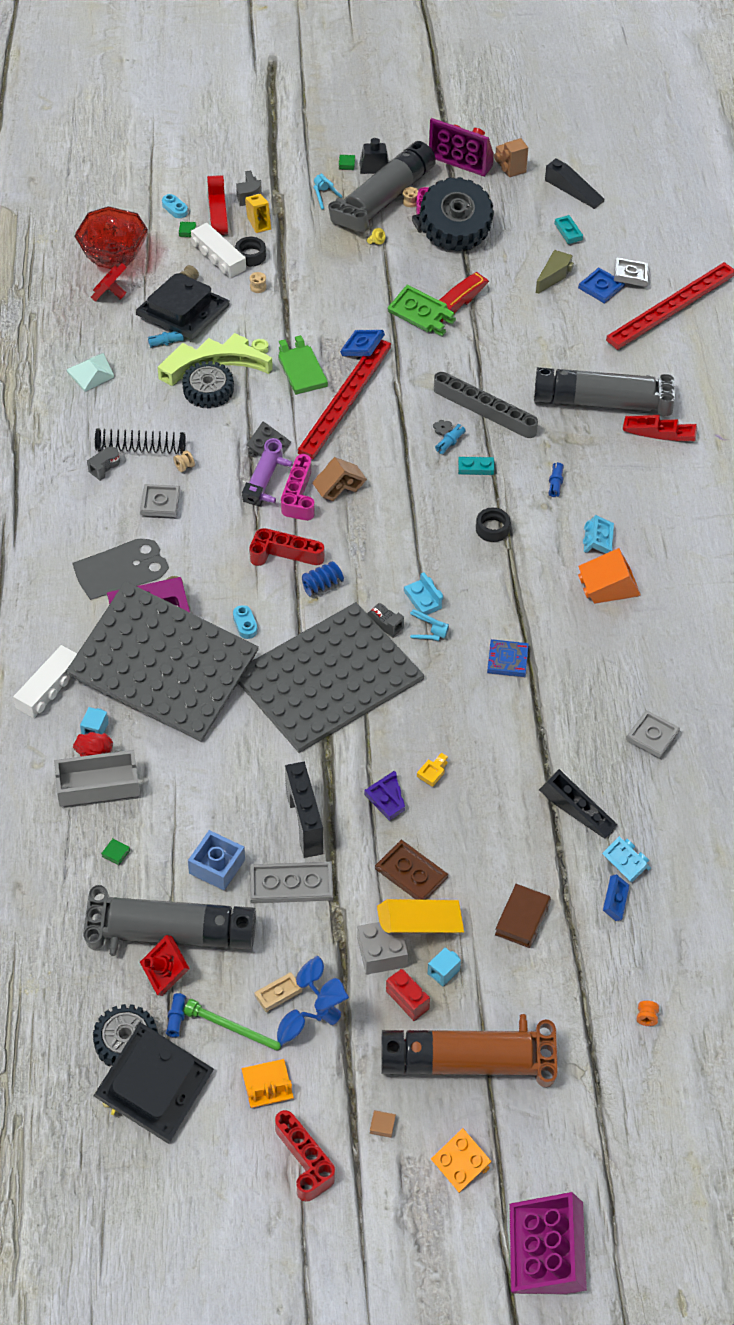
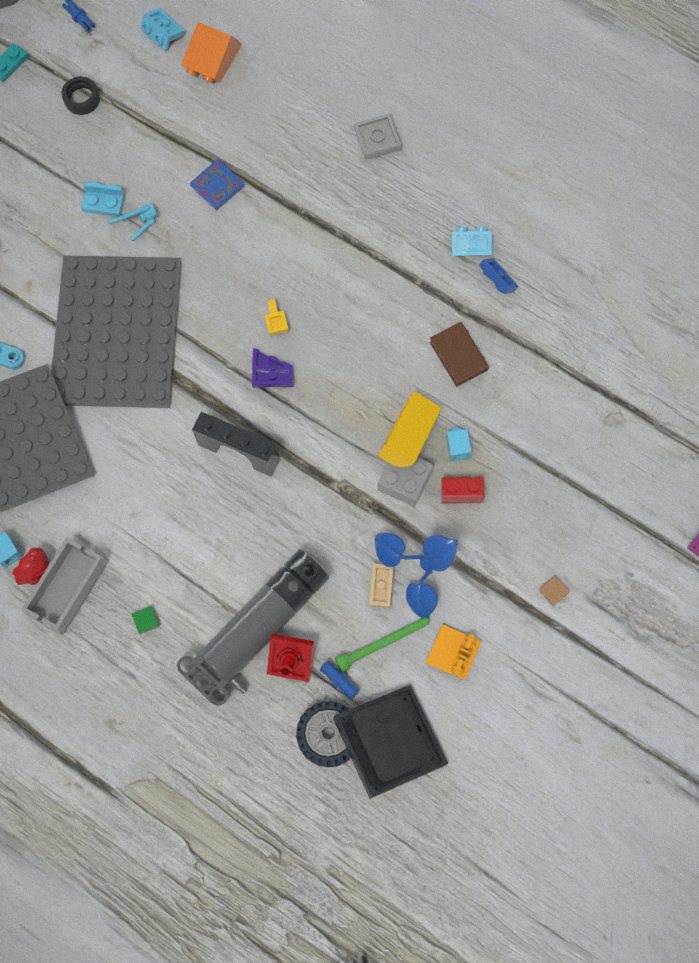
camera: 45 degrees left, 20 degrees up
(216, 860) = (224, 546): medium blue brick -> none
(291, 882) = (287, 503): light grey tile -> none
(301, 1150) = (535, 671): red beam -> none
(321, 576) = (16, 264): blue piece -> none
(387, 619) = (101, 245): dark grey leg -> none
(411, 871) = (352, 405): reddish brown tile -> none
(461, 1160) = (629, 556): light orange hinge -> none
(471, 1052) = (551, 481): dark orange piece -> none
(576, 803) = (390, 239): black slope -> none
(647, 1013) = (612, 330): orange wheel -> none

